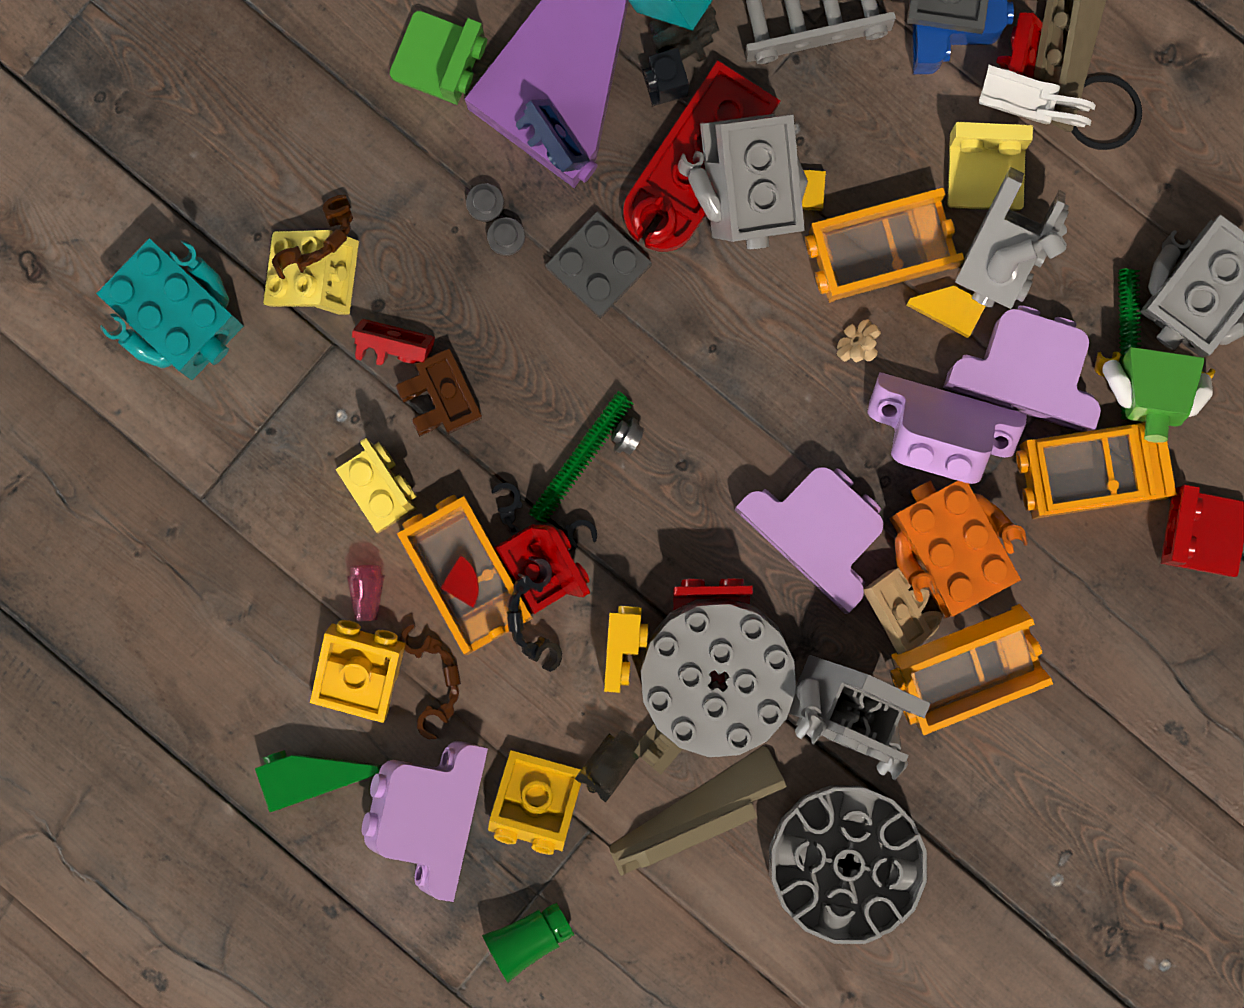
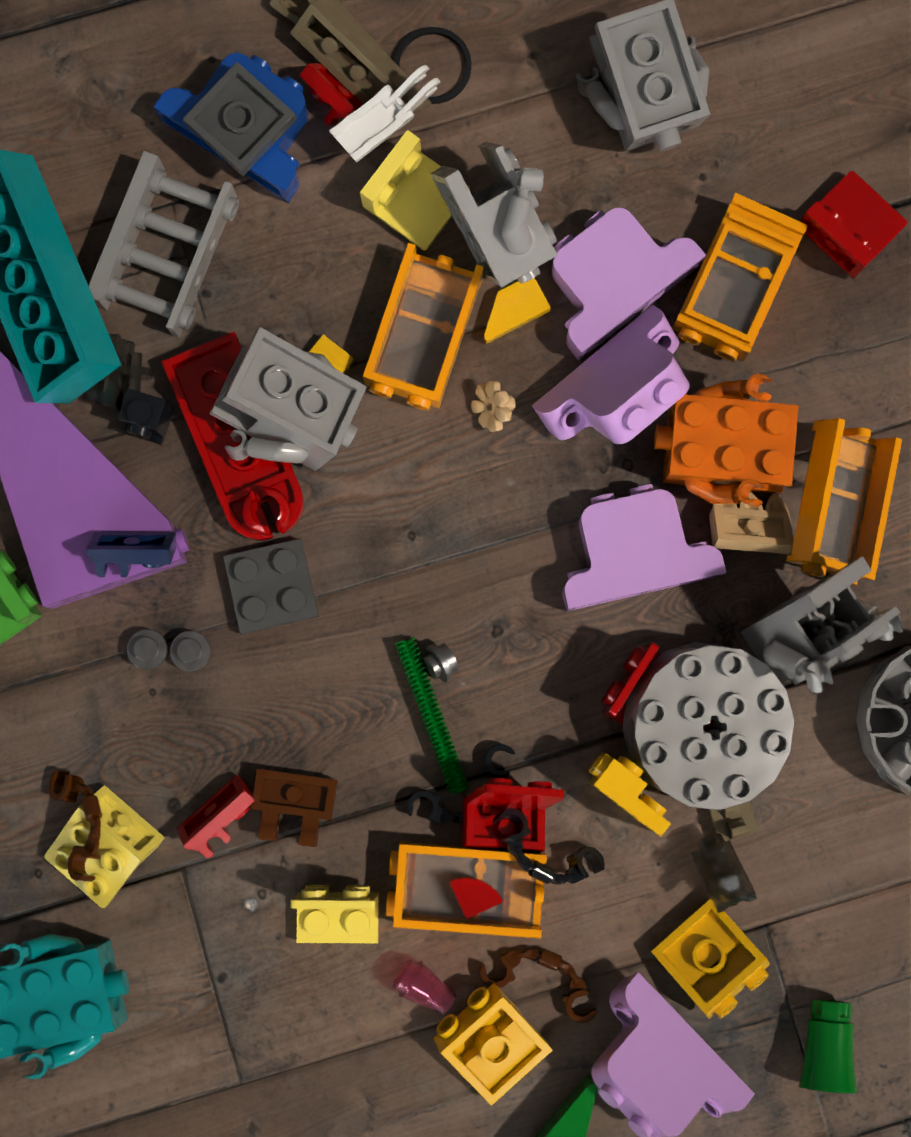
camera: 60 degrees left, 0 degrees up
(701, 814) = (816, 819): dark tan wedge -> none
(1128, 314) = (649, 179): green axle -> none
(1157, 387) = (705, 179): bright green torso -> none

